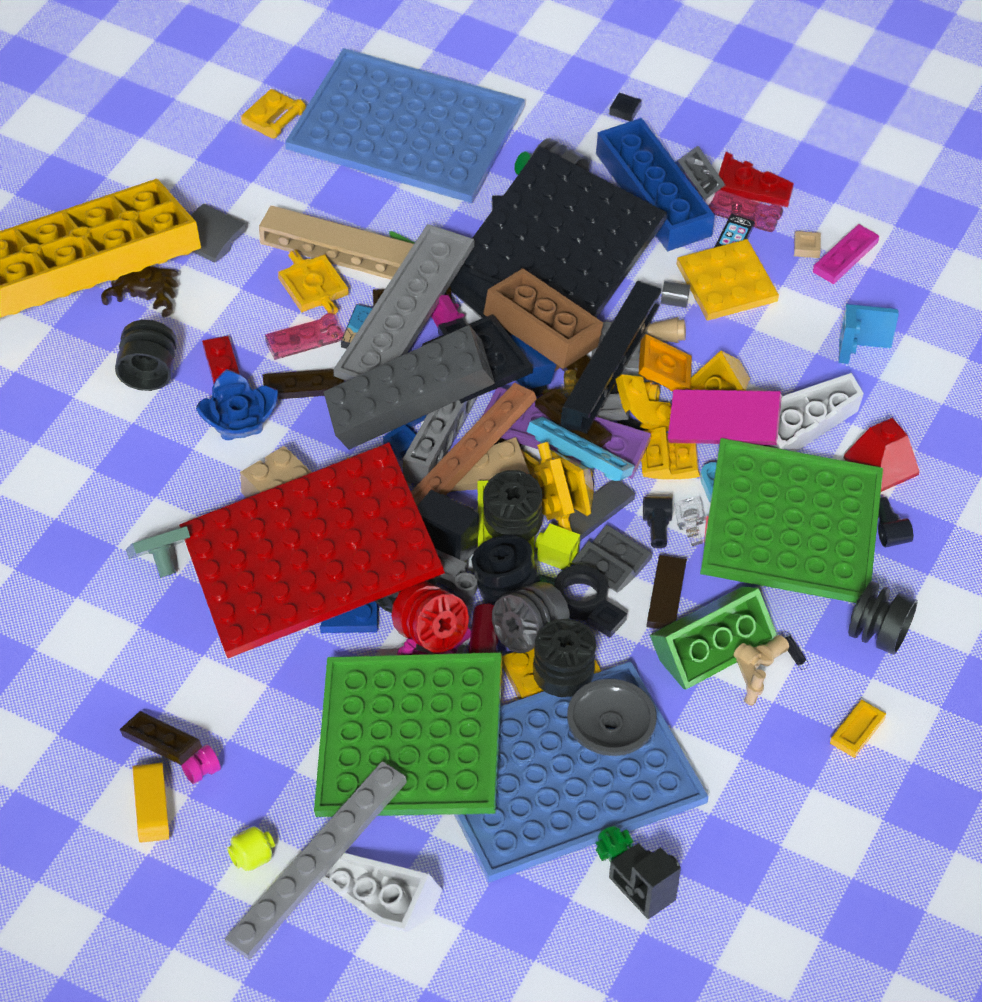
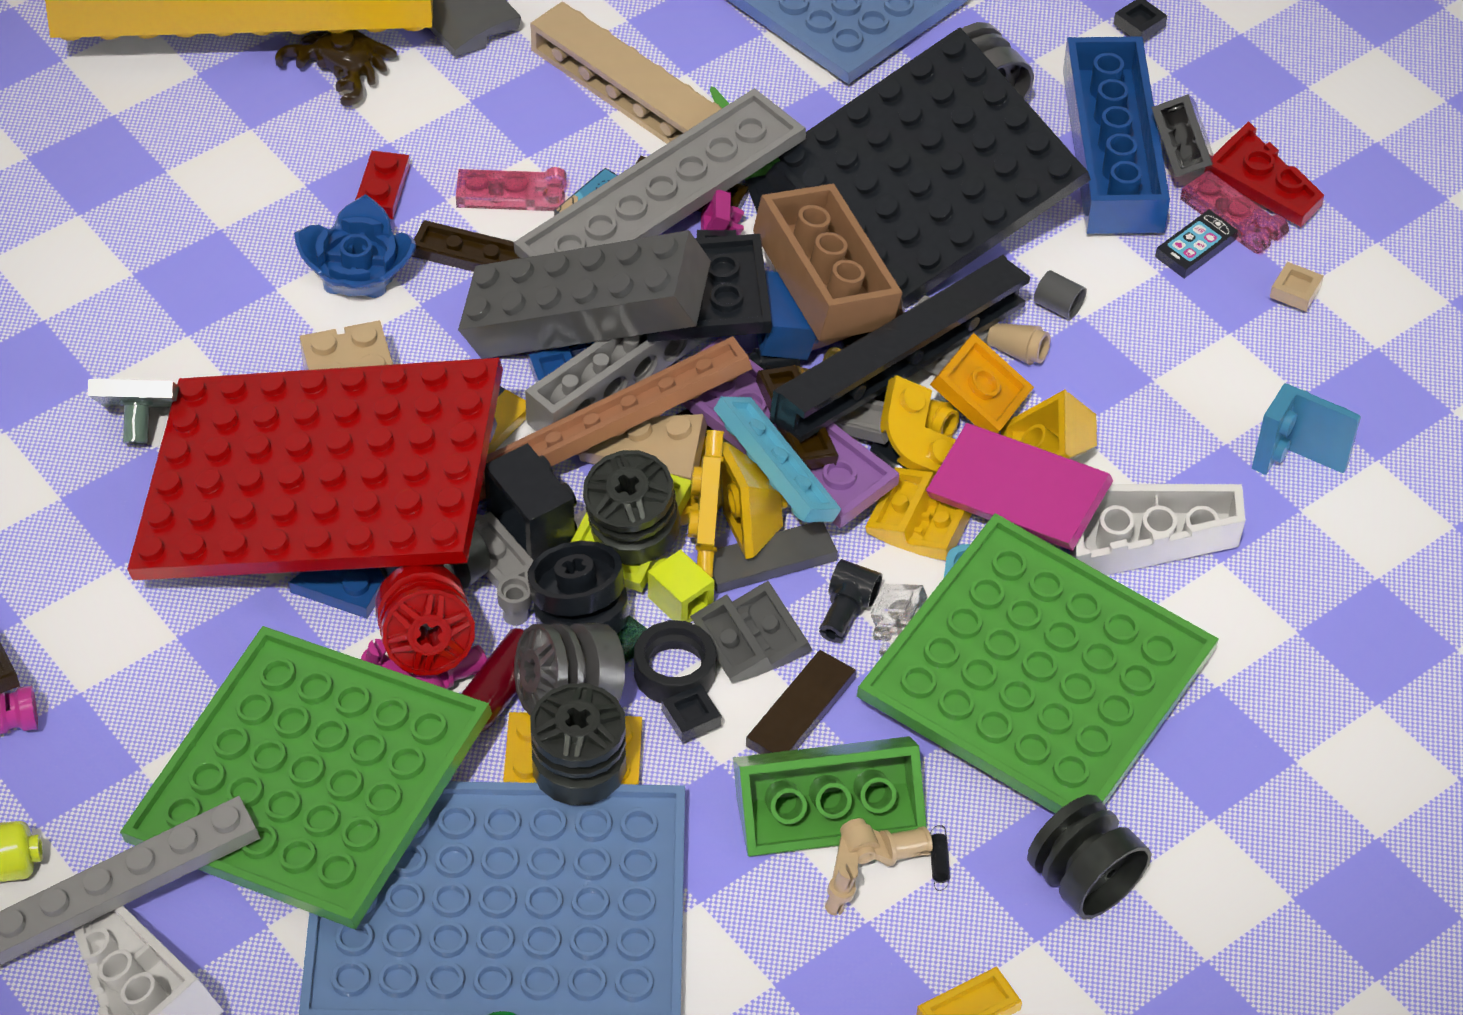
camera: 25 degrees right, 0 degrees up
(146, 355) = (276, 143): pearl dark grey wheel -> none
(312, 283) = (564, 121): yellow plate -> none
(613, 705) = (593, 833): dark grey dish -> none
(727, 279) = (1150, 299): yellow plate -> none
(846, 254) = (1347, 317): dark pink plate -> none
(888, 448) = (1244, 616): red slope -> none
(892, 528) = (1189, 732): black pin -> none

